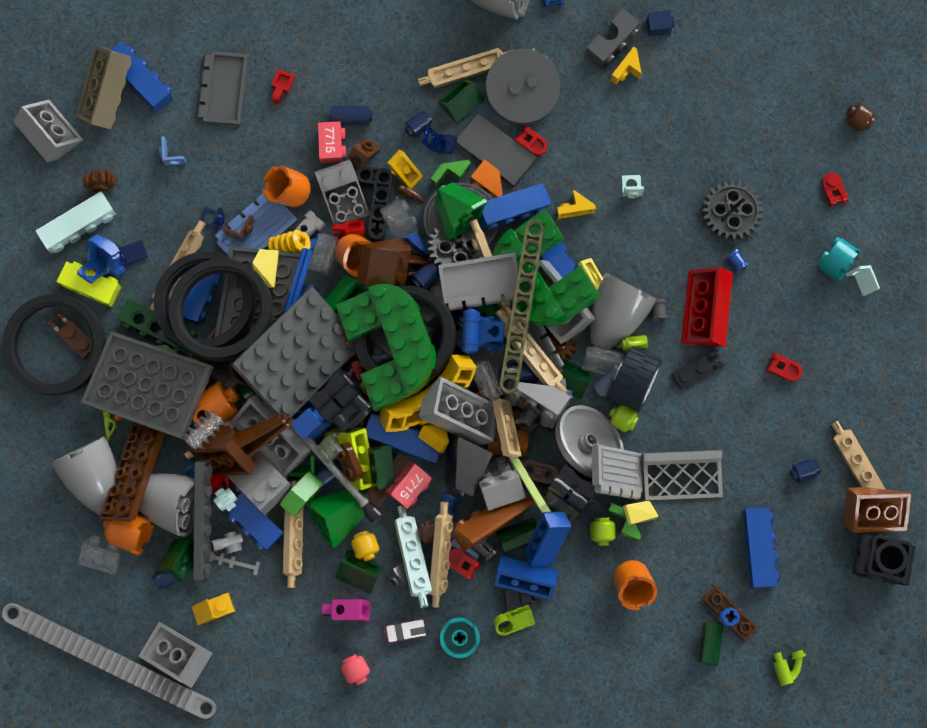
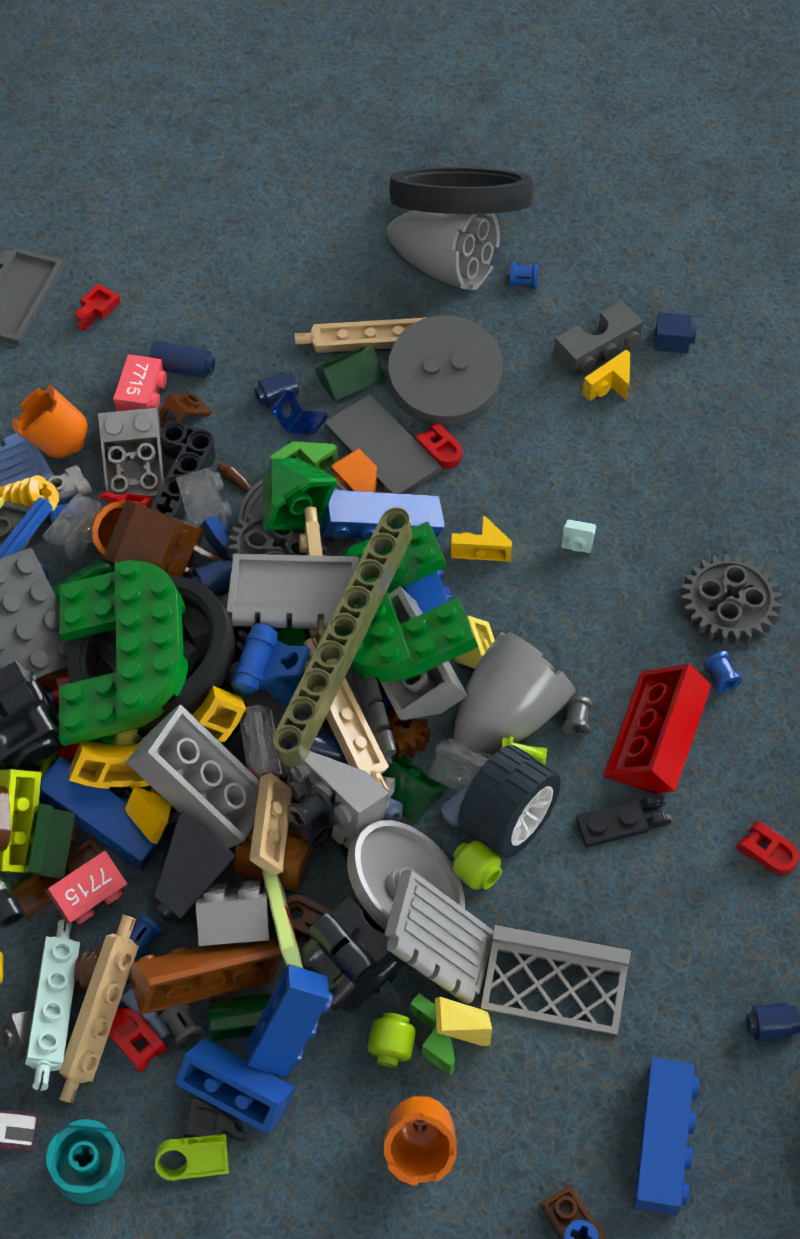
camera: 15 degrees right, 20 degrees down
(404, 169) = (235, 440): yellow slope -> none

